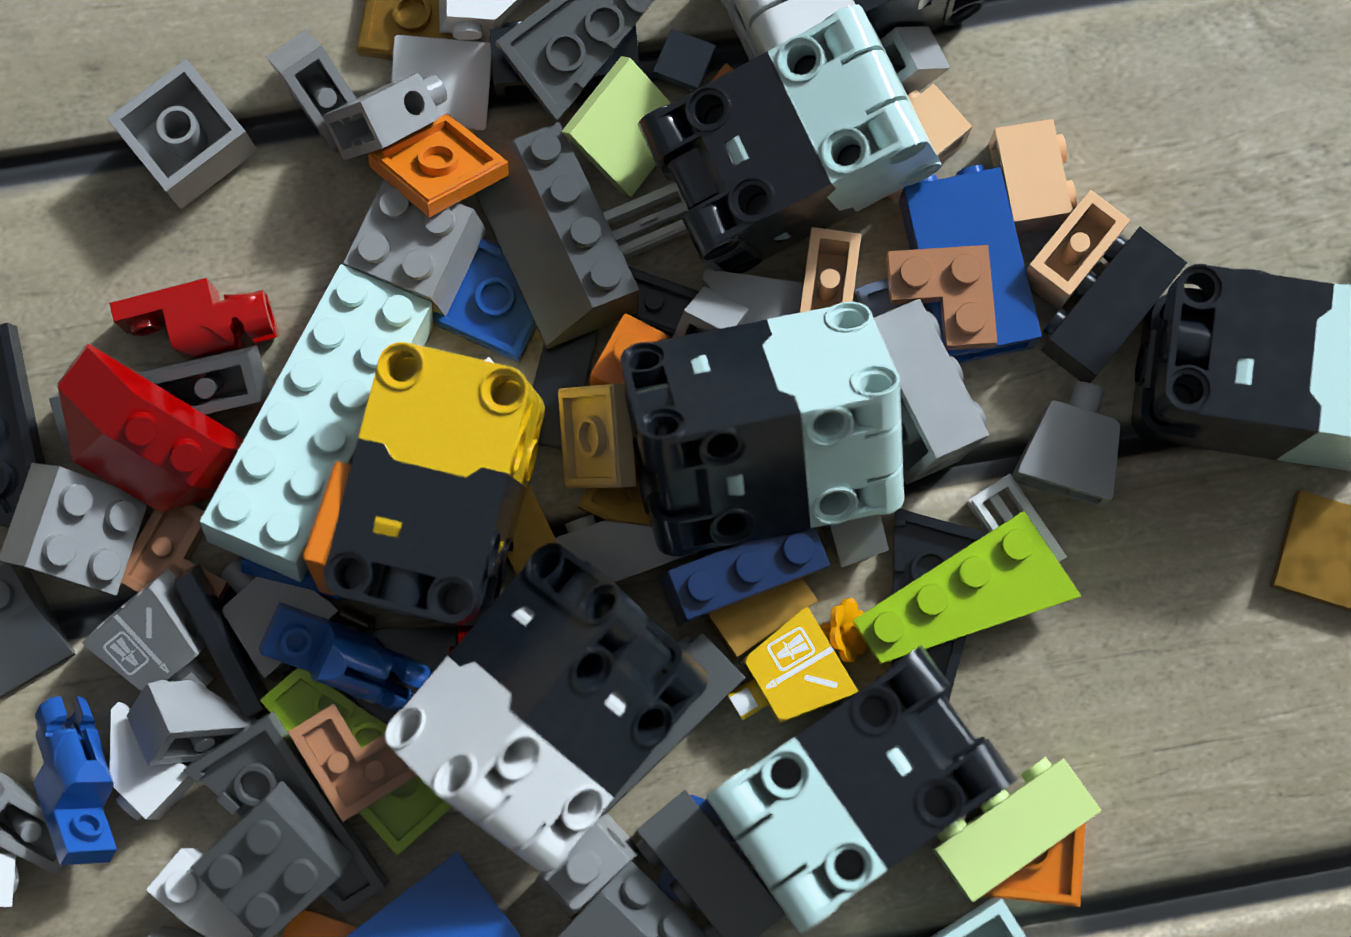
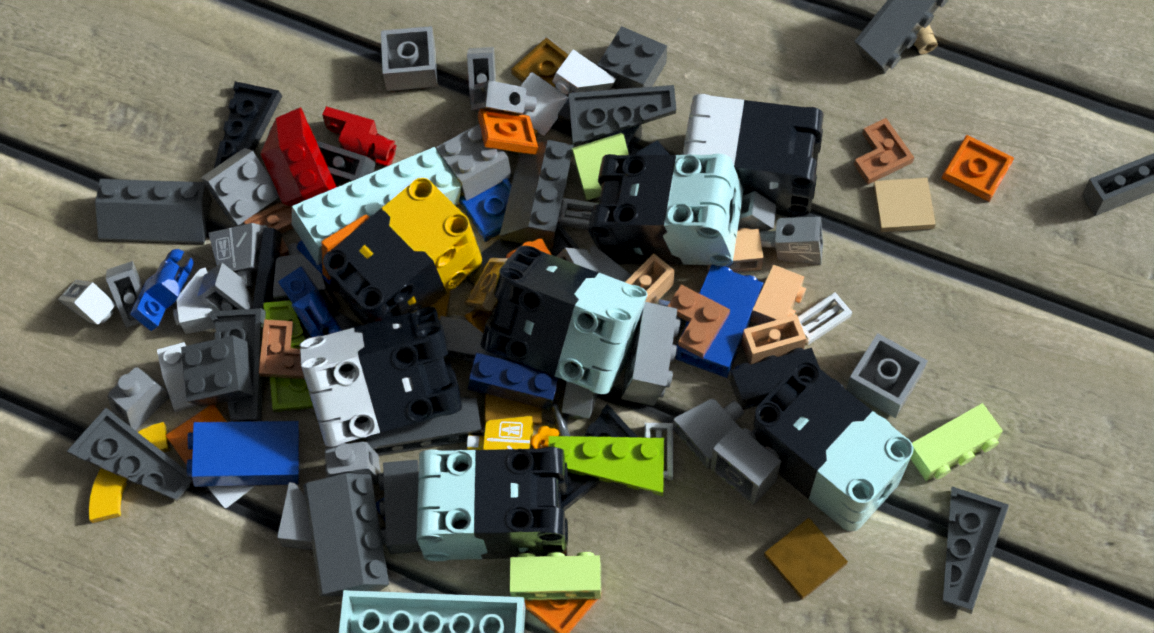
camera: 35 degrees right, 15 degrees down
(849, 587) = (561, 423): none -> dark grey bar
(1012, 53) = (796, 239): none -> light grey torso
(1121, 127) = (811, 337): none -> white tile
(1173, 471) = (745, 463): none -> light grey brick
(1272, 199) = (886, 375): none -> light grey brick

